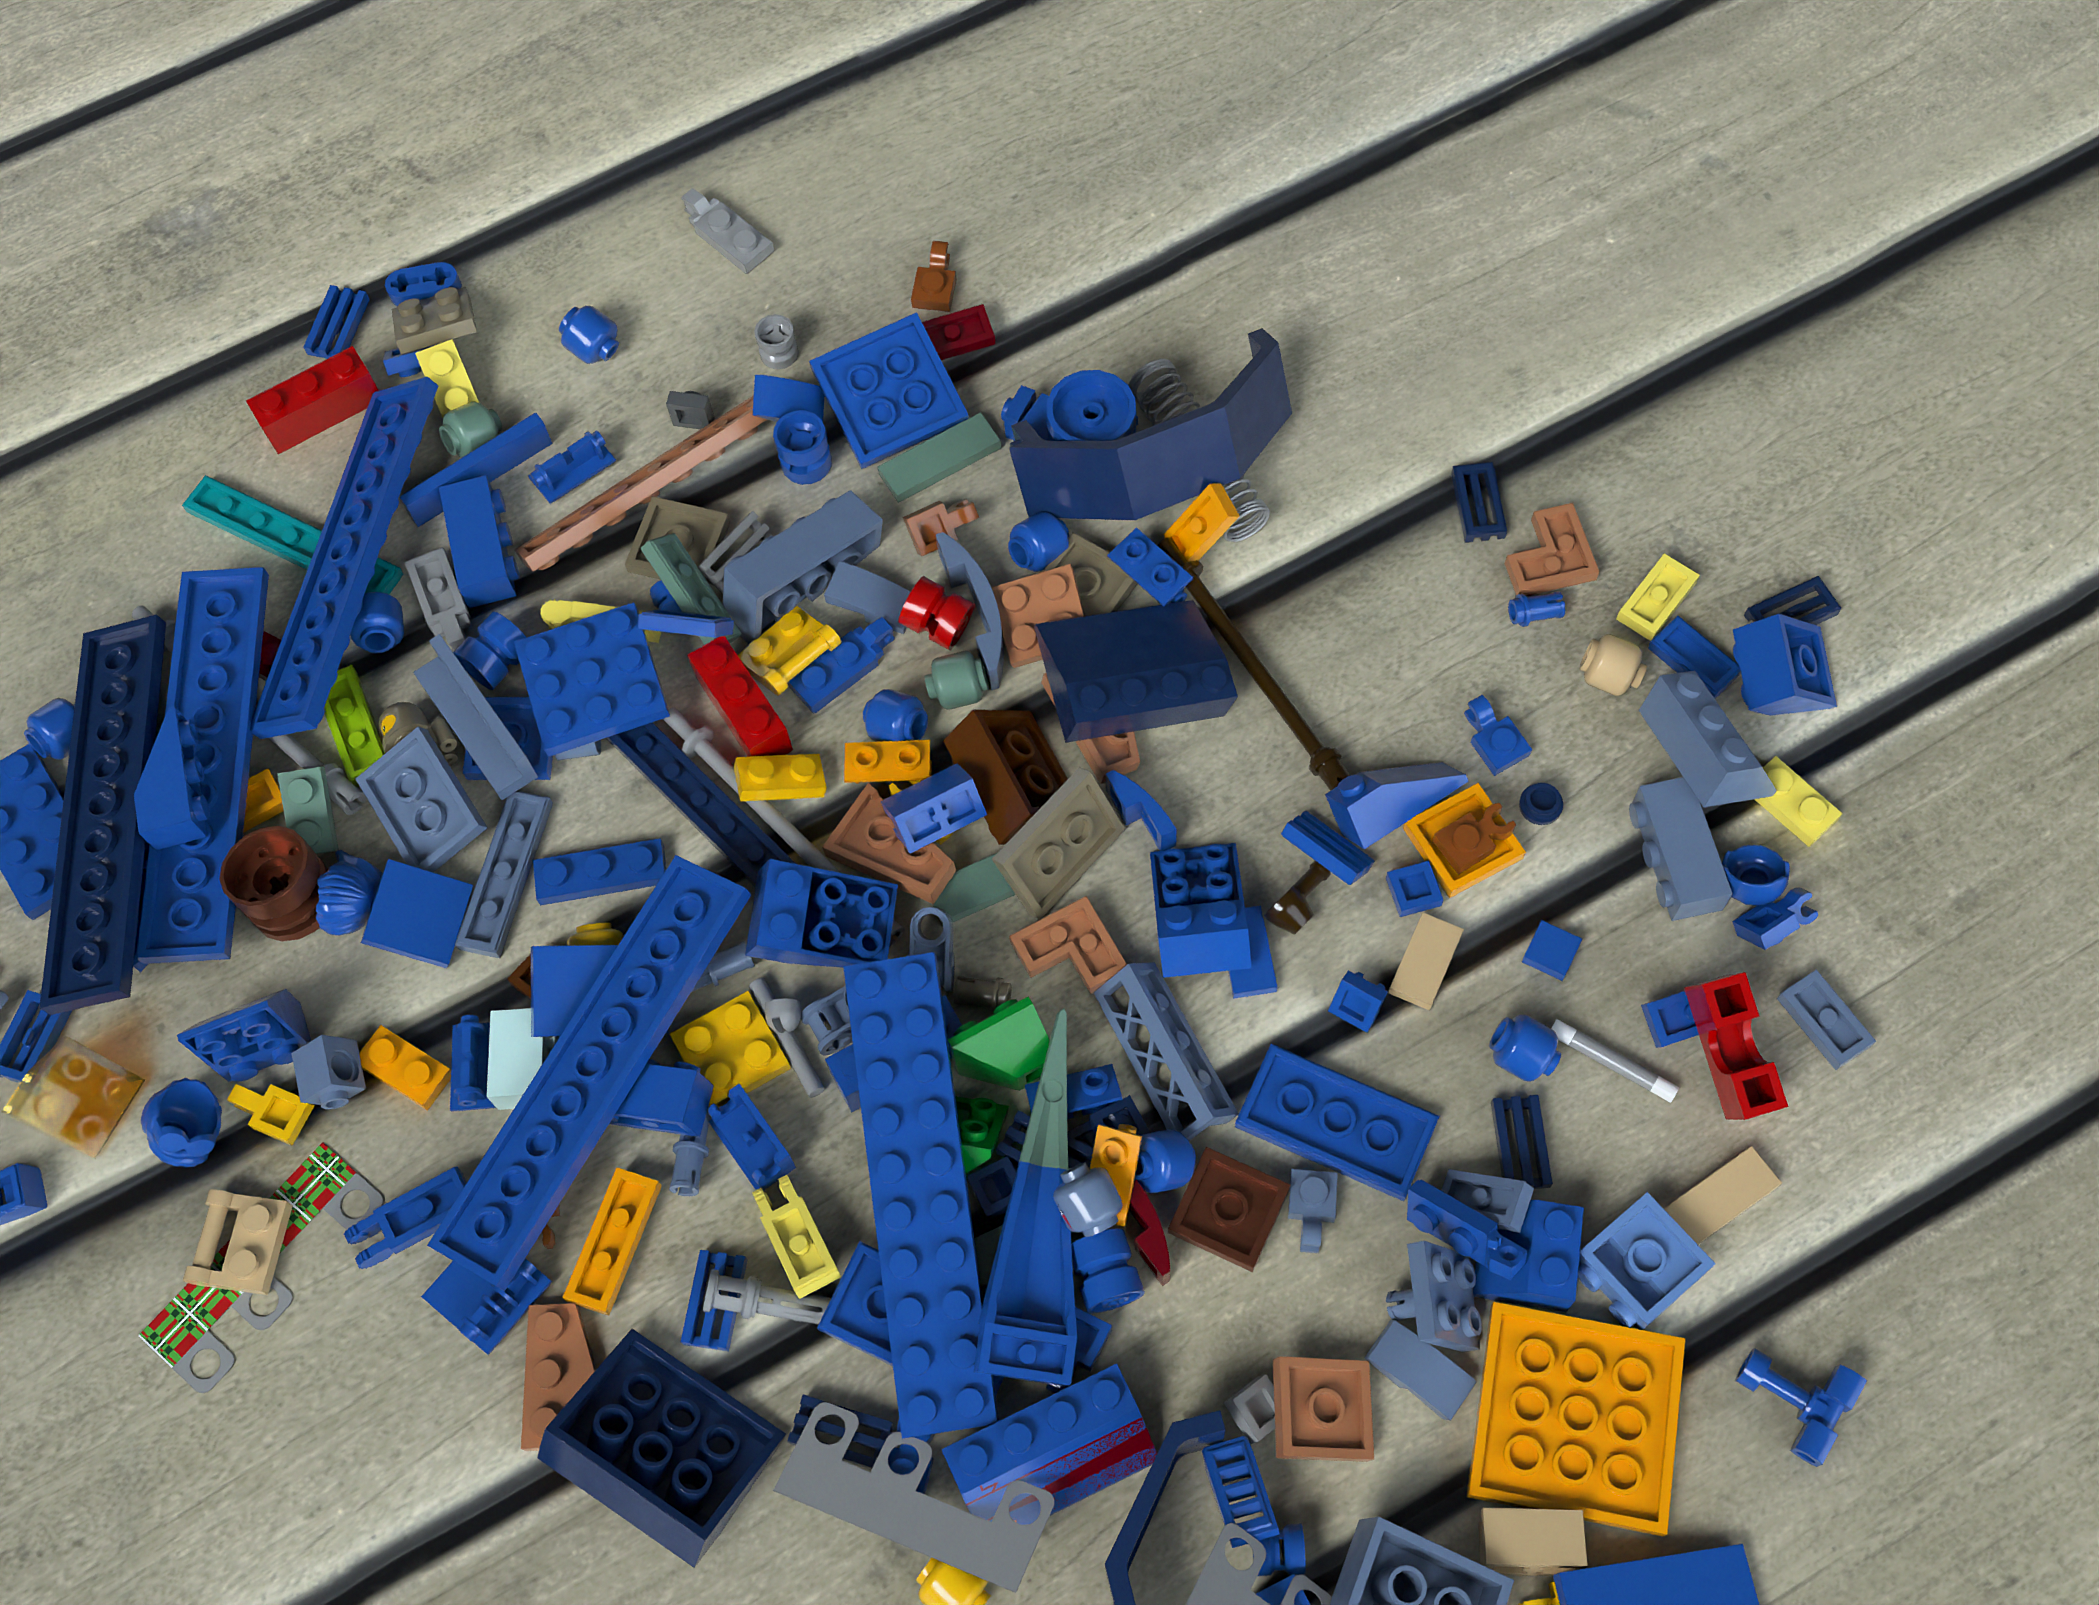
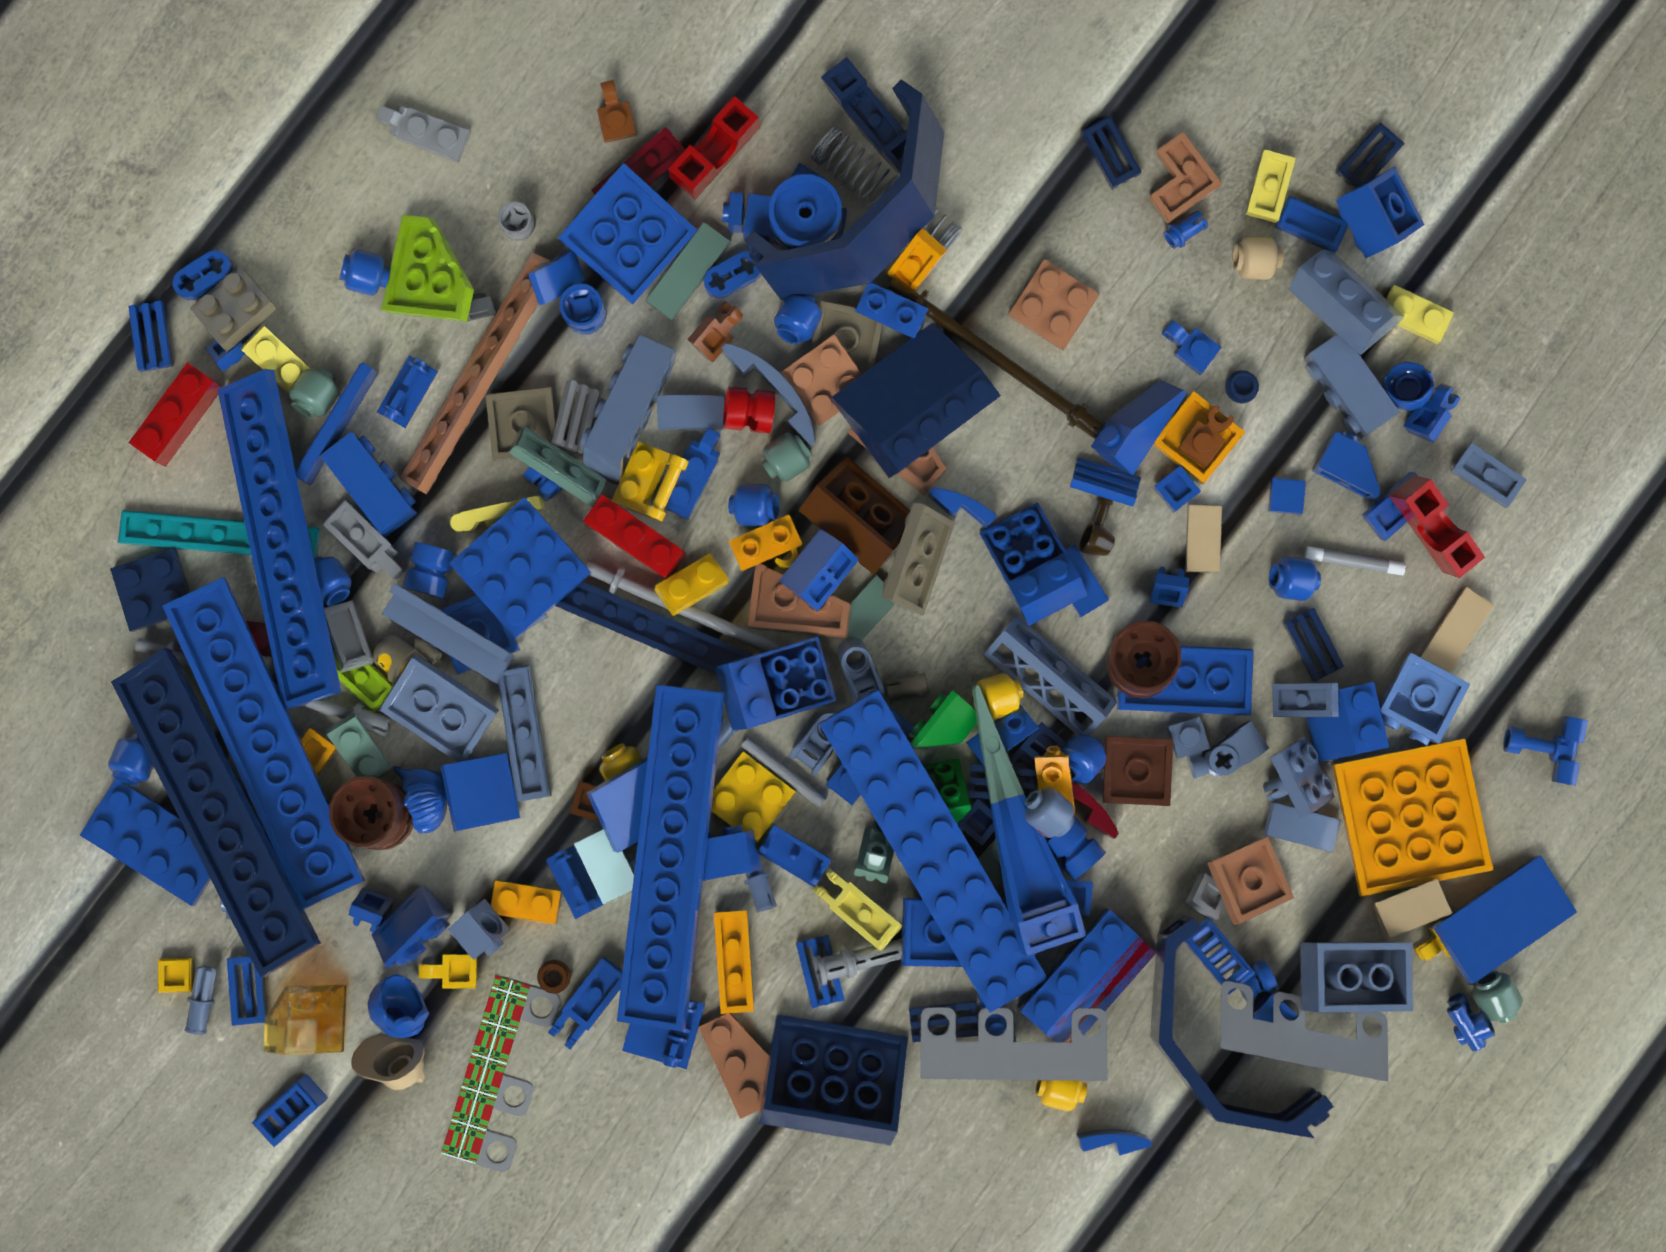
camera: 25 degrees left, 20 degrees up
(139, 1190) = (390, 1060): none -> tan piece
(169, 792) = (259, 783): blue slope -> none
(182, 551) = (147, 586): none -> dark blue plate
(217, 994) = (371, 908): none -> blue tile
(252, 1246) = (488, 1065): tan plate -> none
(364, 688) = (347, 637): none -> light grey tile
(379, 1161) = (543, 976): none -> reddish brown plate
(599, 871) = (592, 705): blue plate -> none
(652, 356) = (426, 274): none -> lime plate
(686, 623) = (572, 499): blue tile -> none
(783, 1014) = (778, 761): light grey hinge -> none
(843, 1177) = (874, 855): none -> sand green hips
(987, 477) = (728, 268): none -> blue beam
(1052, 333) = (727, 136): none -> red arch
(1072, 934) = (954, 618): nougat plate -> none
(1091, 1044) = (1000, 694): none -> yellow head
(1207, 351) = (867, 112): none -> dark blue slope
(1290, 1038) = (1146, 640): none -> copper wheel
(1345, 636) = (1053, 305): none -> nougat plate
(1375, 1232) = (1239, 747): none -> sand blue piece
(1463, 1229) = (1300, 726): blue hinge -> none
(1643, 939) = (1348, 465): none -> blue slope

